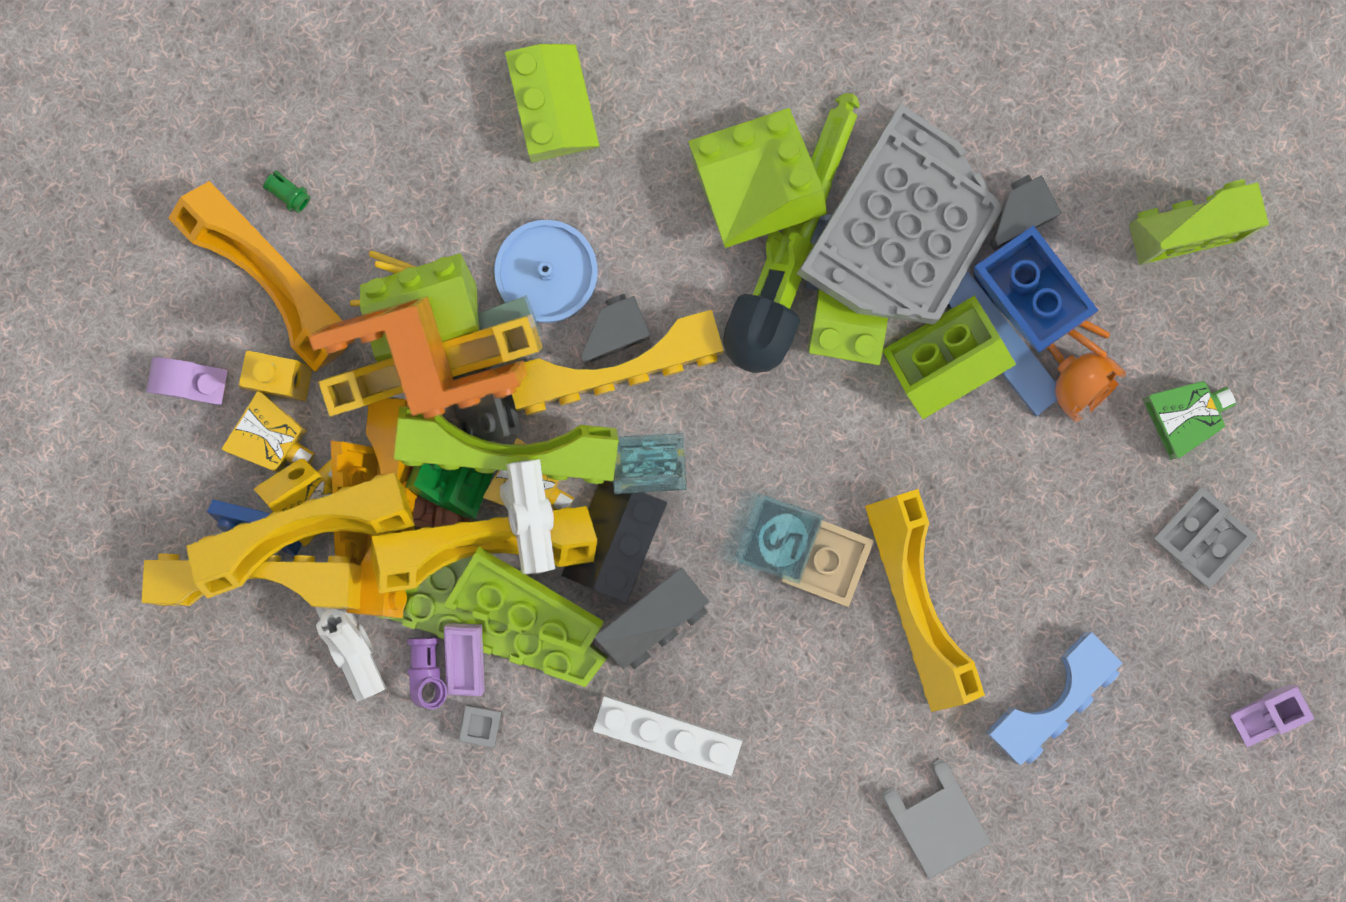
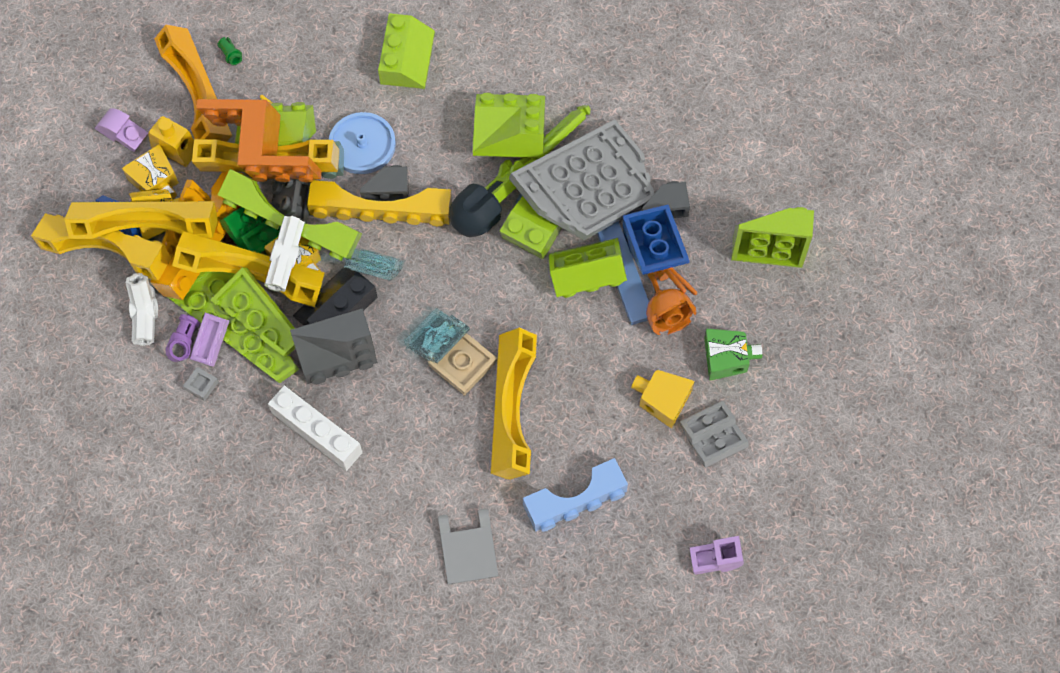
camera: 25 degrees right, 20 degrees down
(1121, 511) = (663, 395): none -> yellow torso

